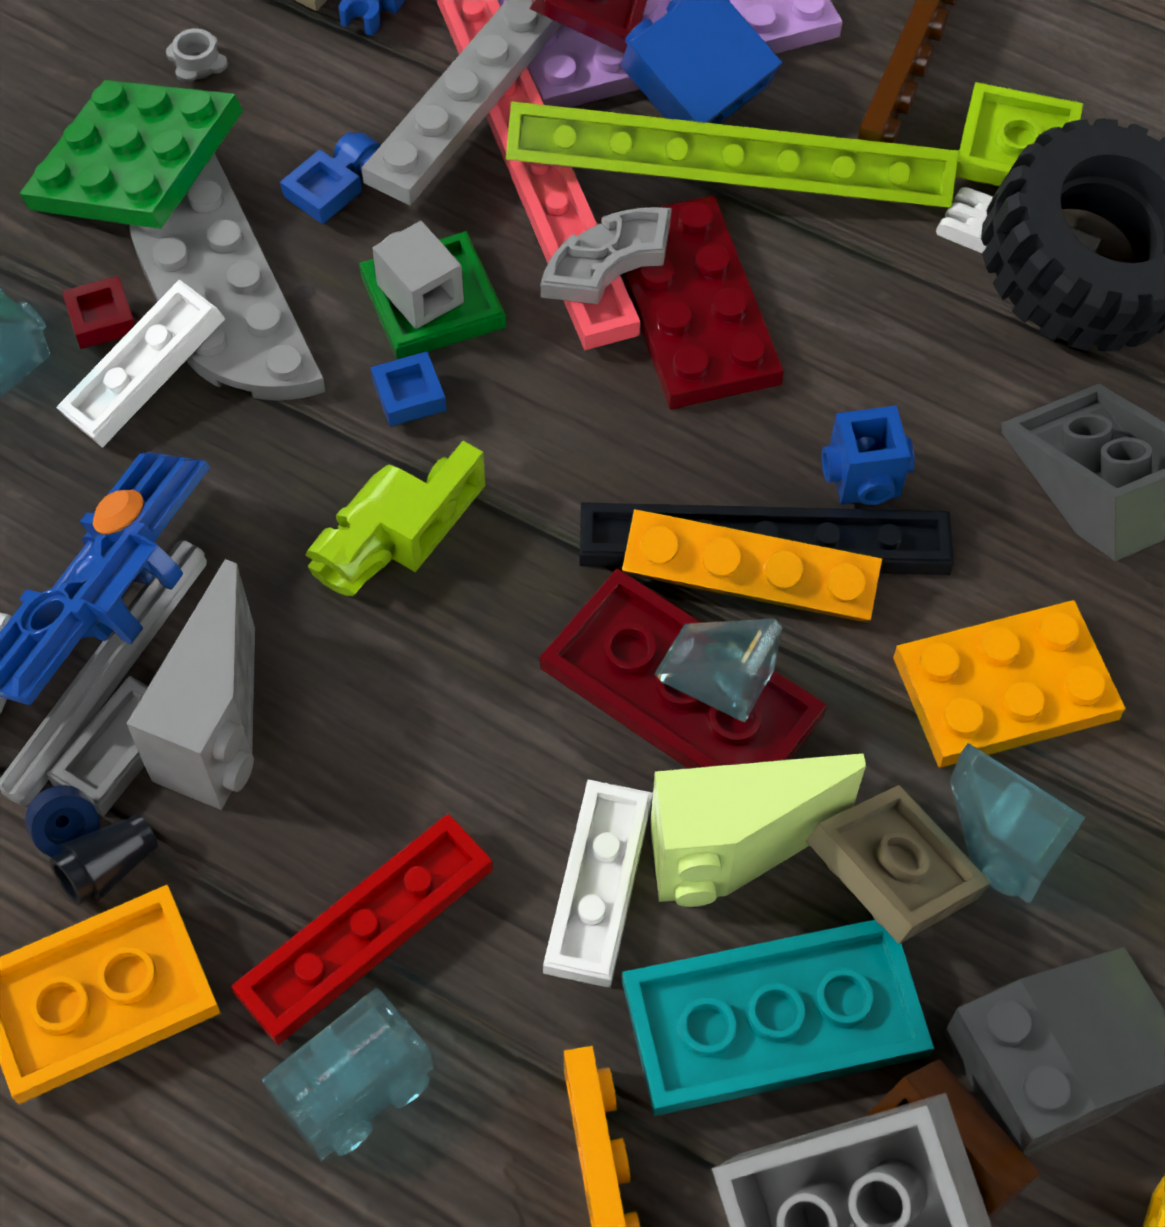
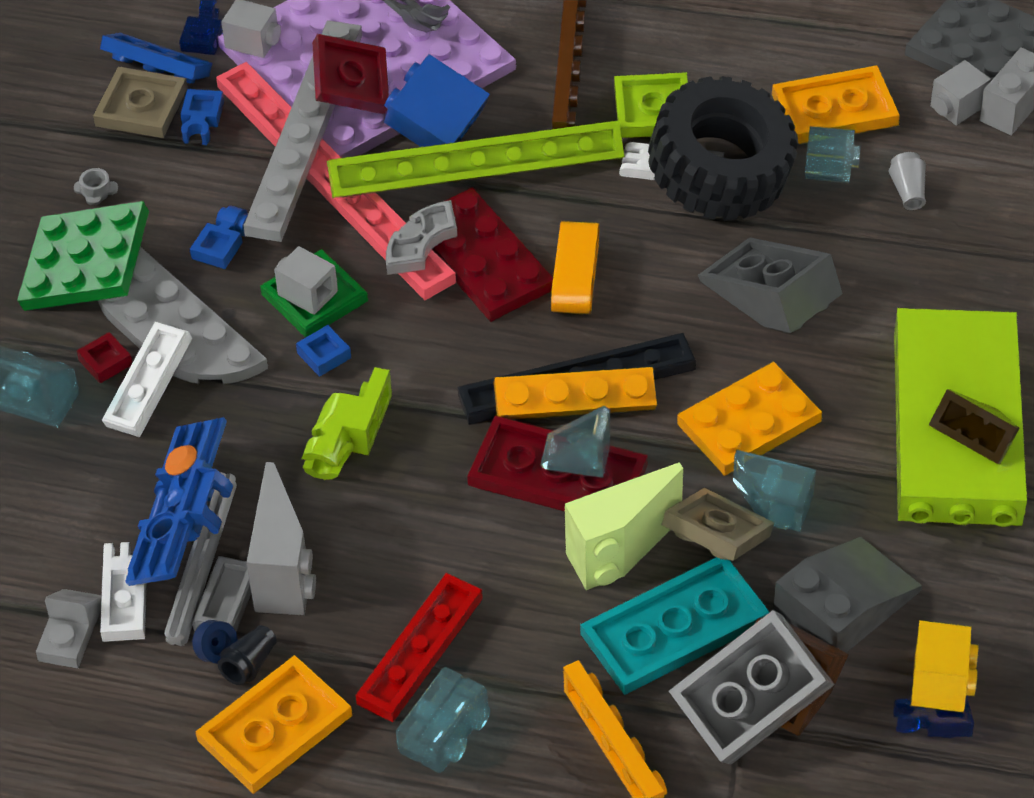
camera: 15 degrees left, 10 degrees down
(598, 884) = (547, 588): white tile -> none
(820, 361) = (575, 267): none -> light orange beam
(868, 456) = (624, 312): blue brick -> none

